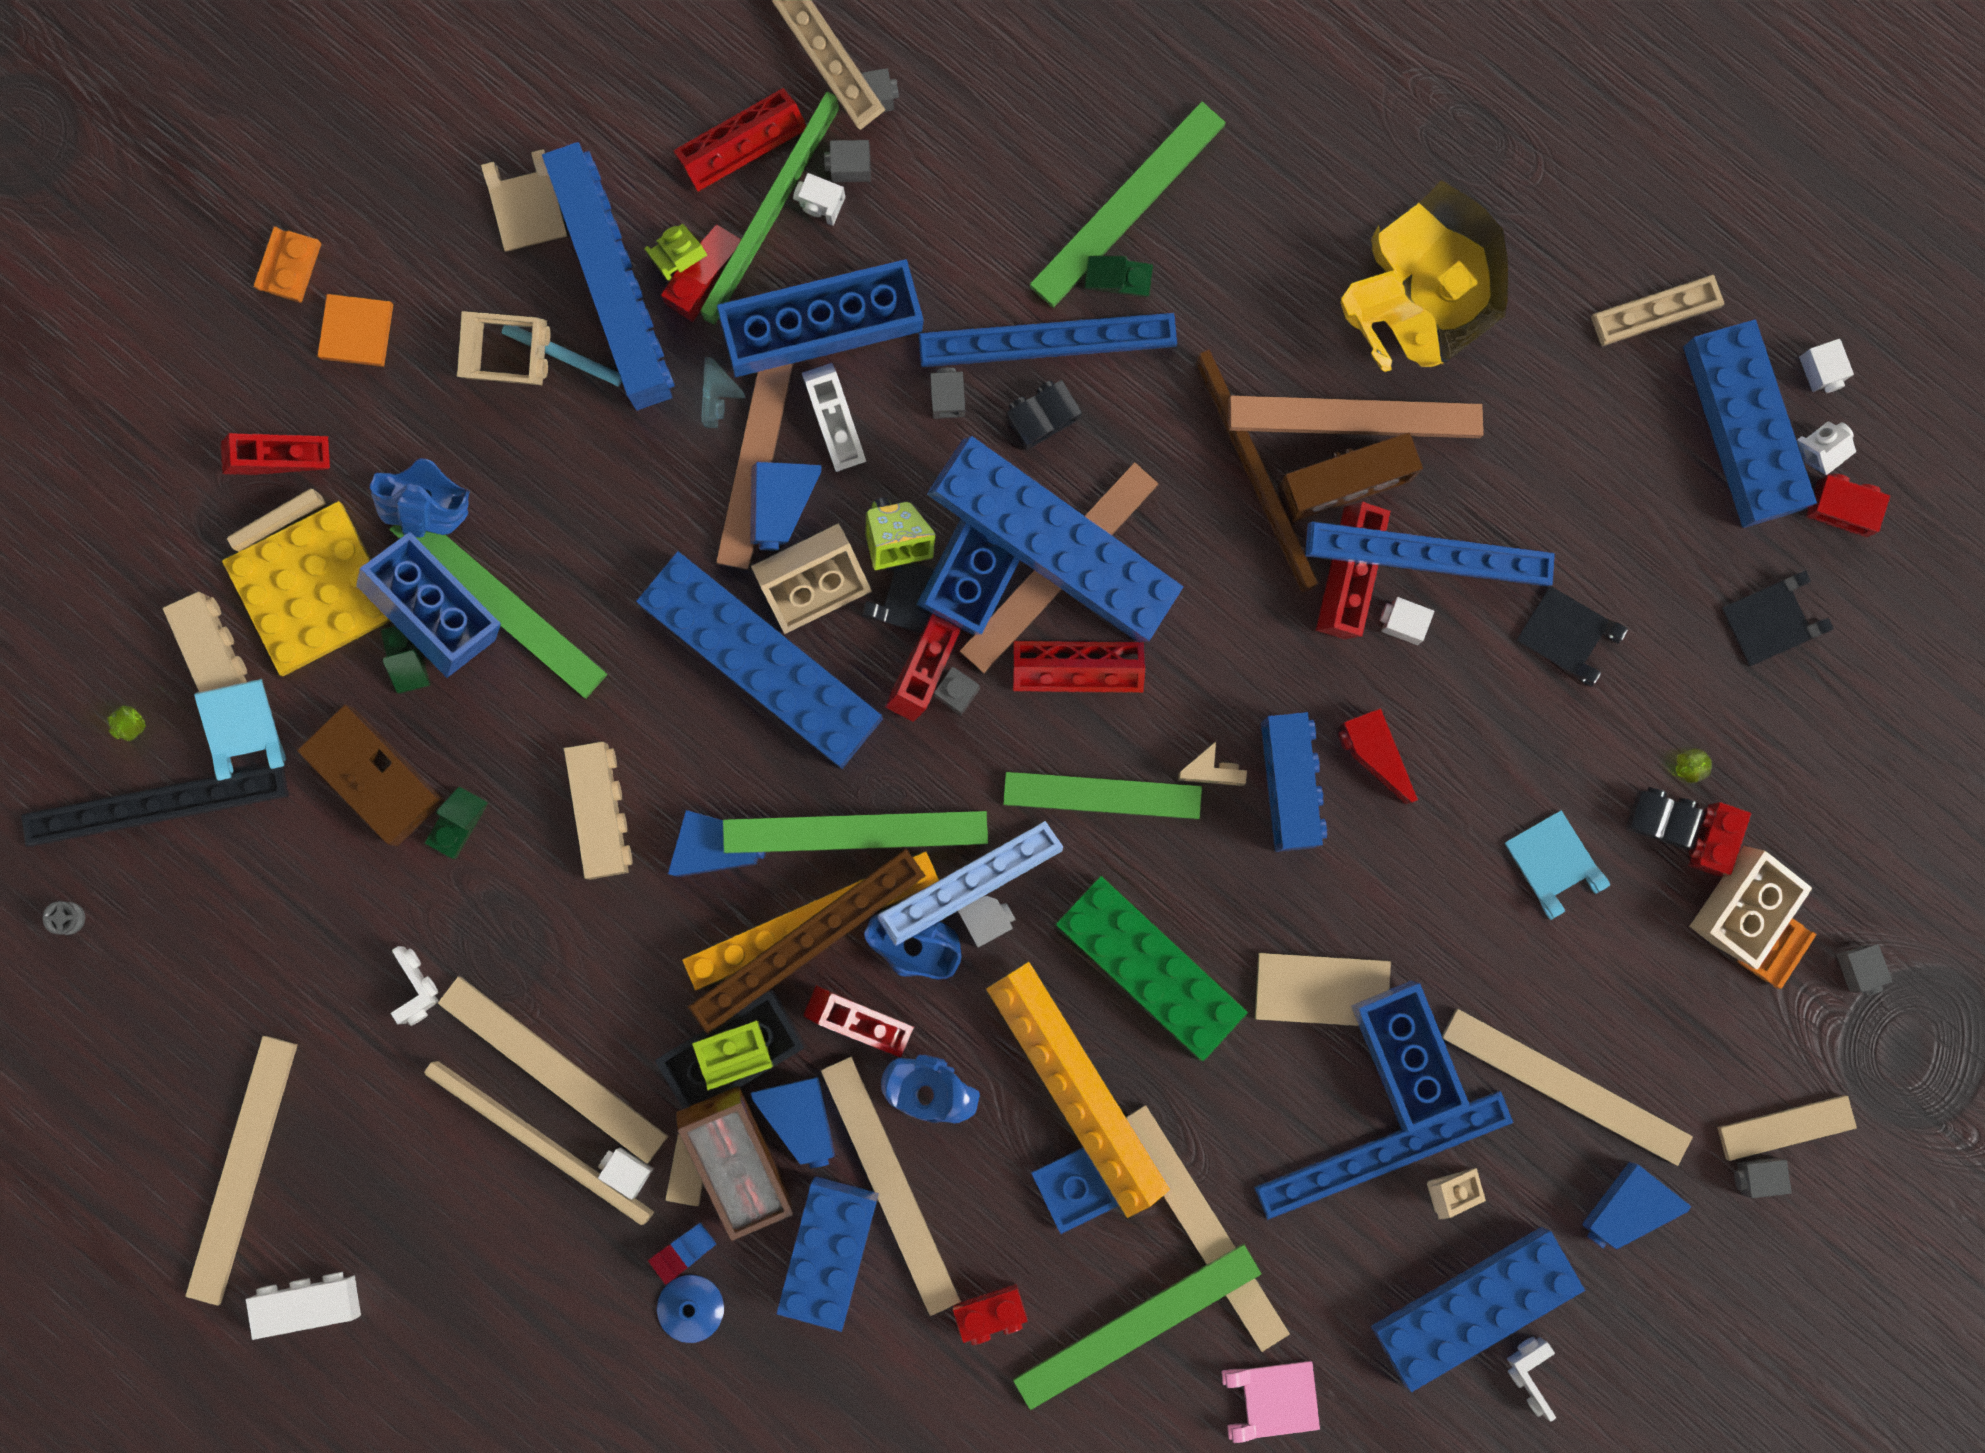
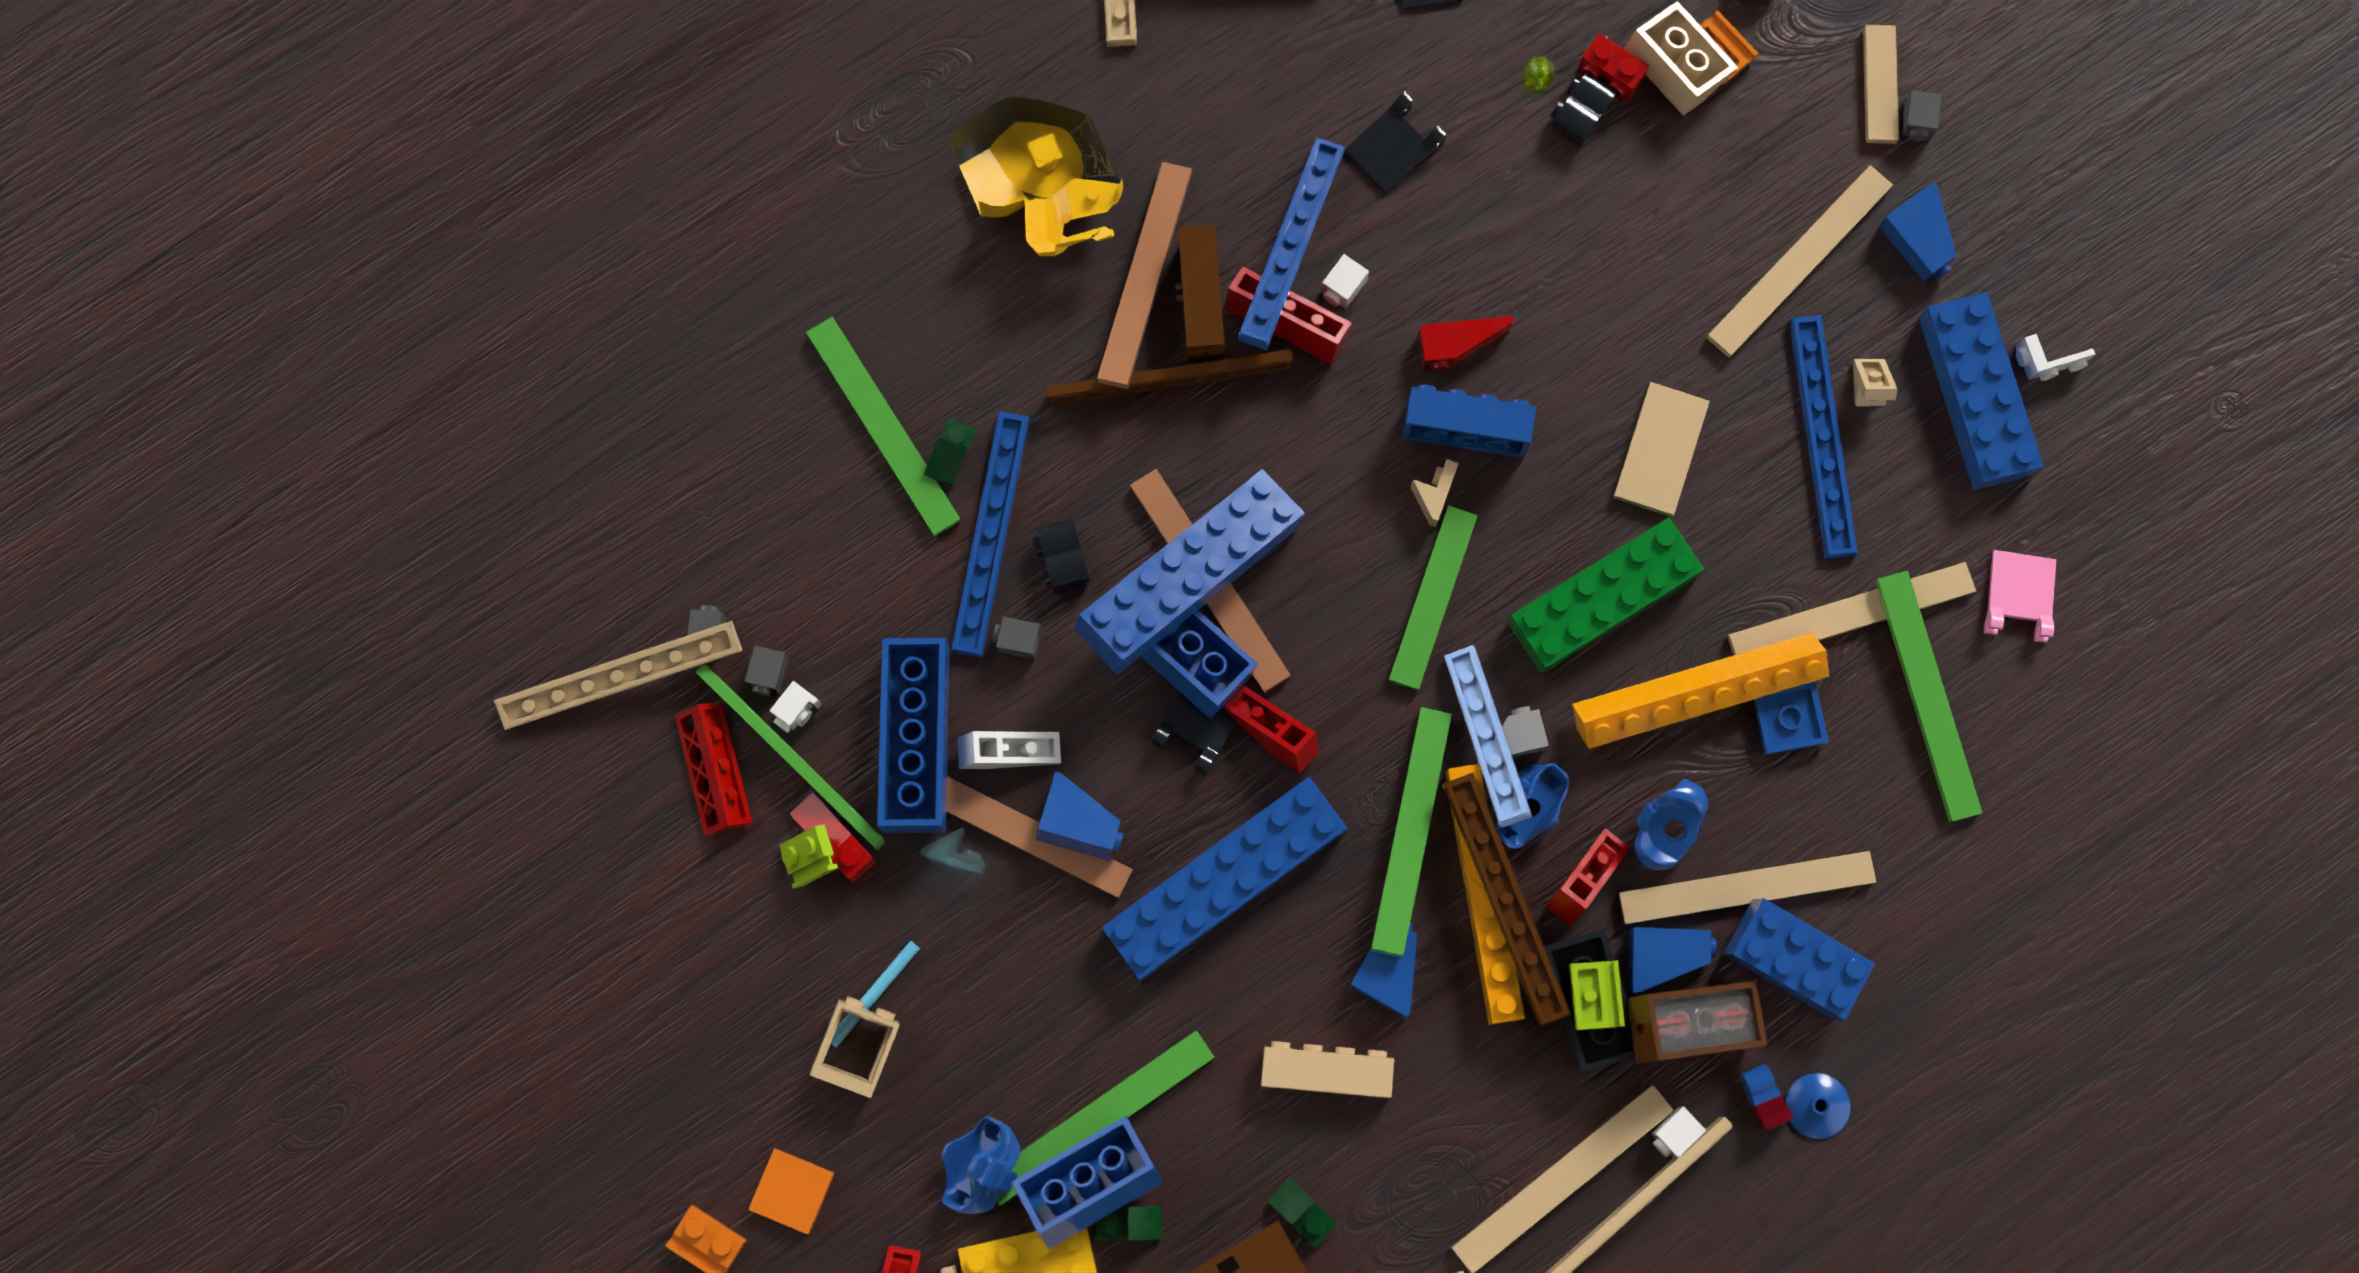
camera: 70 degrees left, 5 degrees down
(525, 206) = (717, 991): tan flag -> none
(606, 273) = (813, 926): blue brick -> none
(684, 1182) = (1690, 1075): tan tile -> none
(811, 578) = (1158, 811): tan slope -> none
(897, 534) = (1140, 718): lime torso -> none
(956, 691) = (1302, 702): dark grey brick -> none
(990, 1314) = (1887, 824): red brick -> none
(1078, 671) = (1313, 586): red fence -> none
(1410, 1056) = (1742, 385): blue brick -> none
(1554, 861) = (1595, 215): medium azure flag -> none

